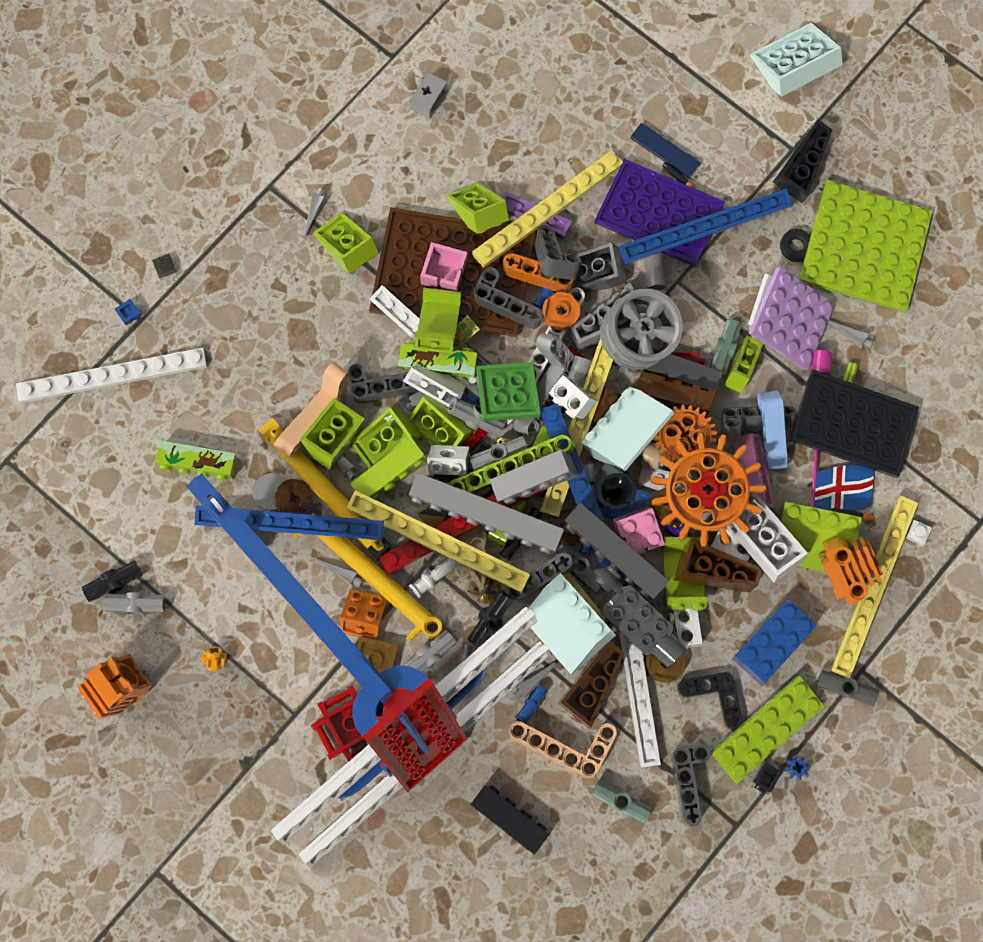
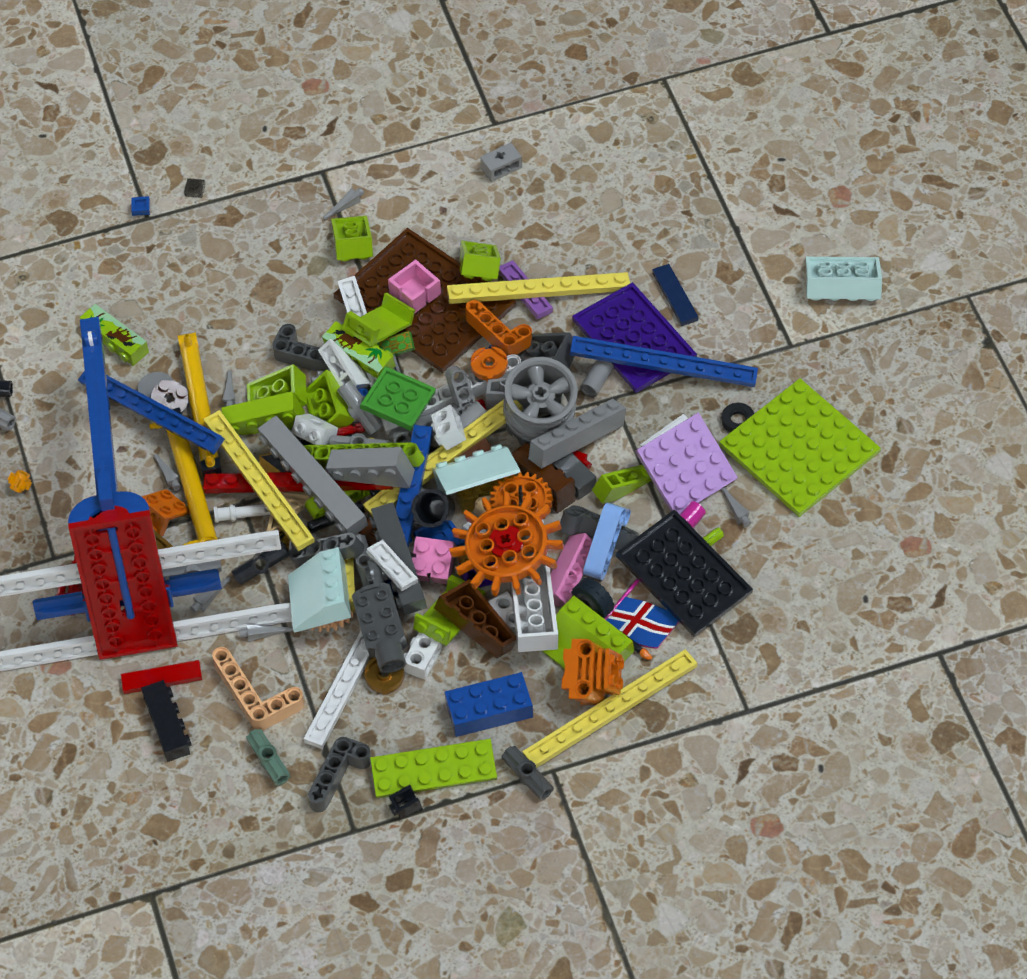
camera: 35 degrees right, 20 degrees down
(111, 375) = (95, 245): white plate -> none
(332, 433) = (234, 363): lime slope -> none
(333, 386) = (233, 344): light nougat beam -> none
(474, 777) = (171, 674): none -> red tile
(510, 302) = (439, 327): dark grey beam -> none
(531, 704) = (249, 646): blue pin -> none
(550, 258) = (509, 318): dark grey beam -> none
(590, 687) = (308, 654): reddish brown wedge -> none
(622, 566) = (392, 565): none -> white tile
(678, 360) = (577, 433): none -> light grey brick
(679, 177) = (671, 317): black piece -> none
(722, 691) = (417, 720): black beam -> none
(726, 346) = (617, 461): sand green piece -> none
(794, 772) = (436, 810): blue gear -> none
(799, 492) = (594, 596): none -> black wheel
(803, 164) = (787, 355): black wedge -> none
(918, 532) = (682, 689): white plate -> none

